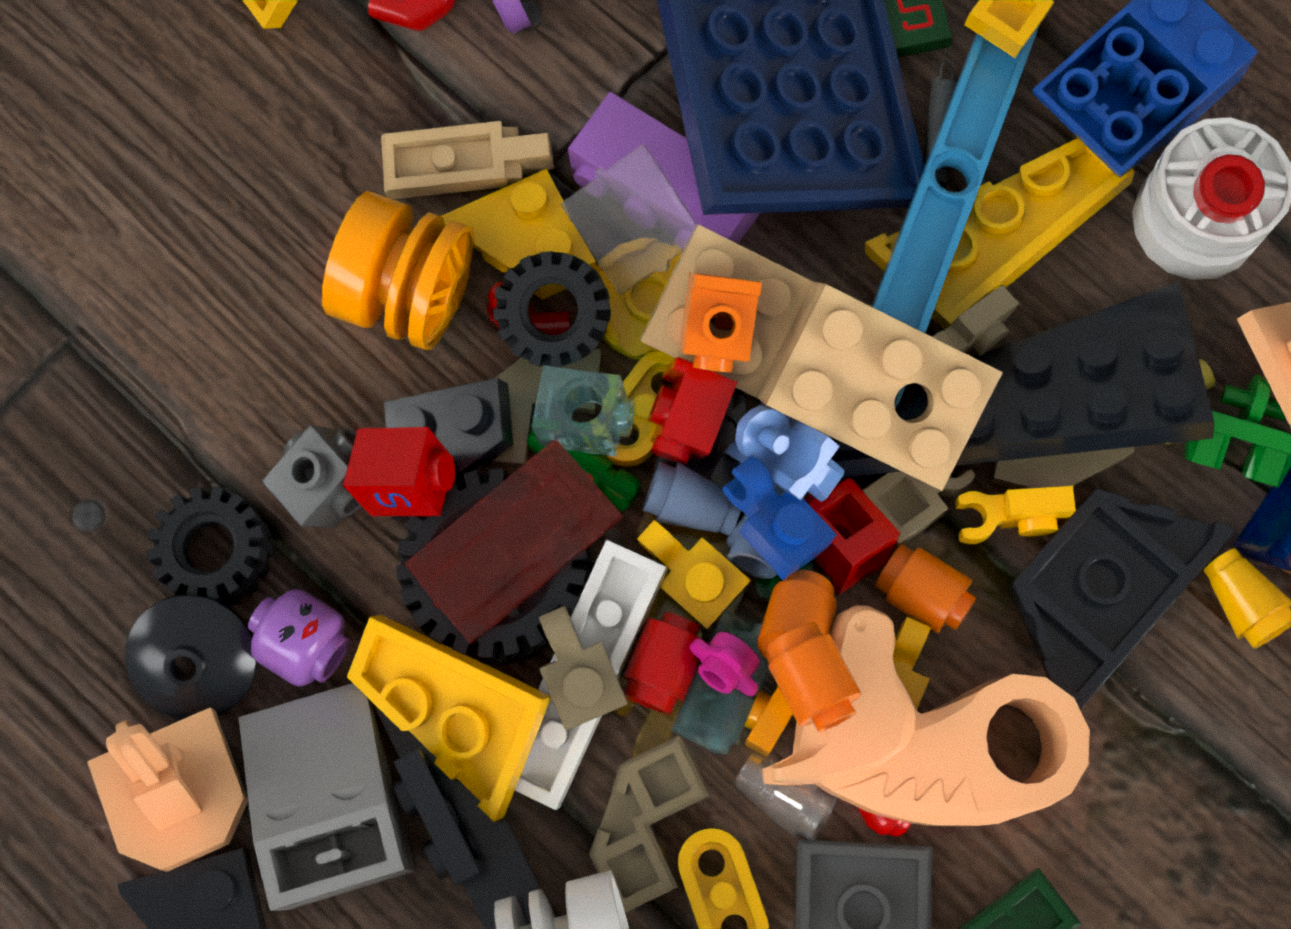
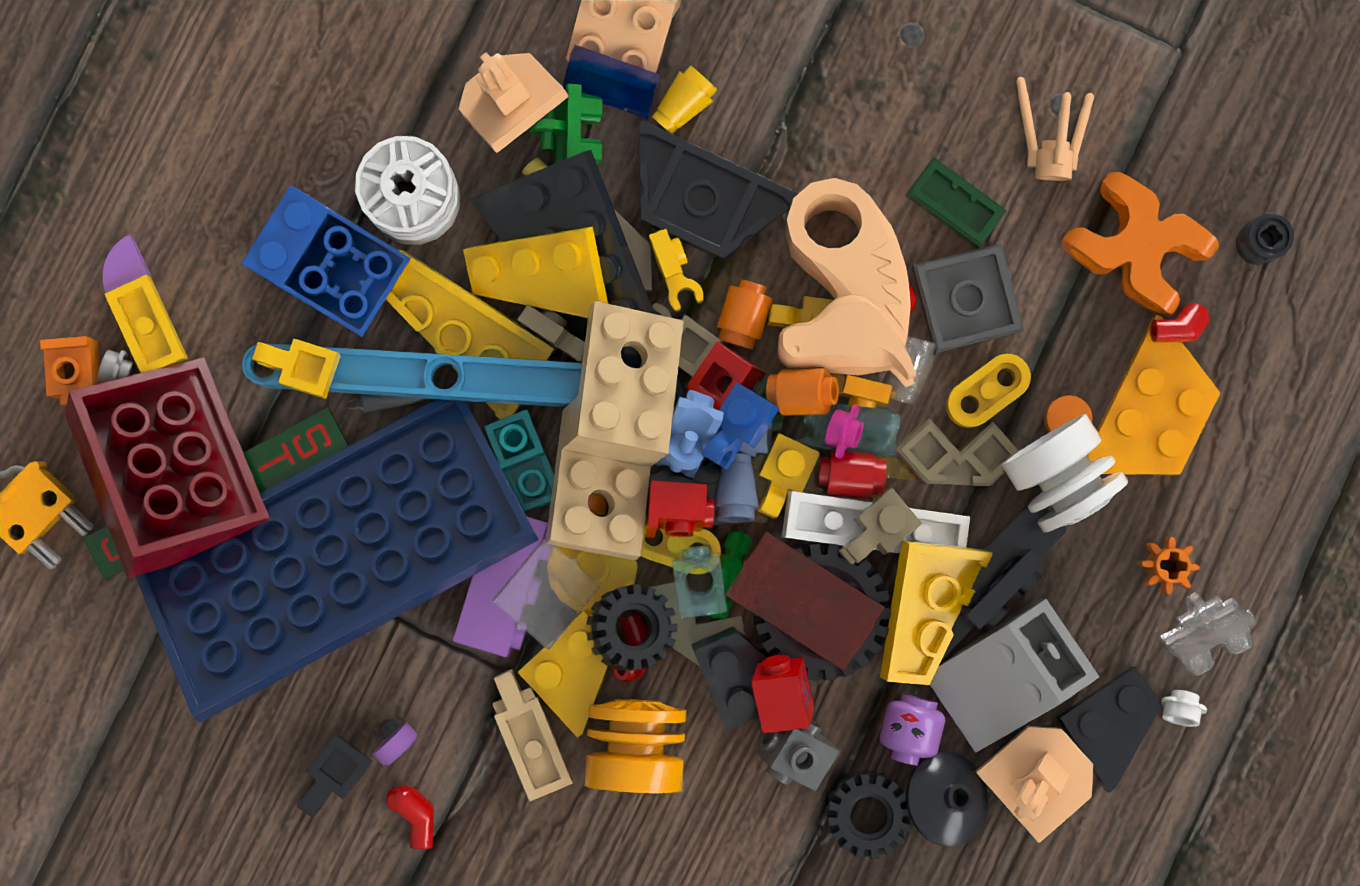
camera: 120 degrees left, 10 degrees up
(711, 295) = (606, 514): orange brick -> none
(813, 677) = (847, 367): orange brick -> none
(824, 249) = (522, 459): none -> teal slope
(1059, 334) = (540, 271): none -> yellow wing
(1229, 188) = (415, 180): red tile -> none

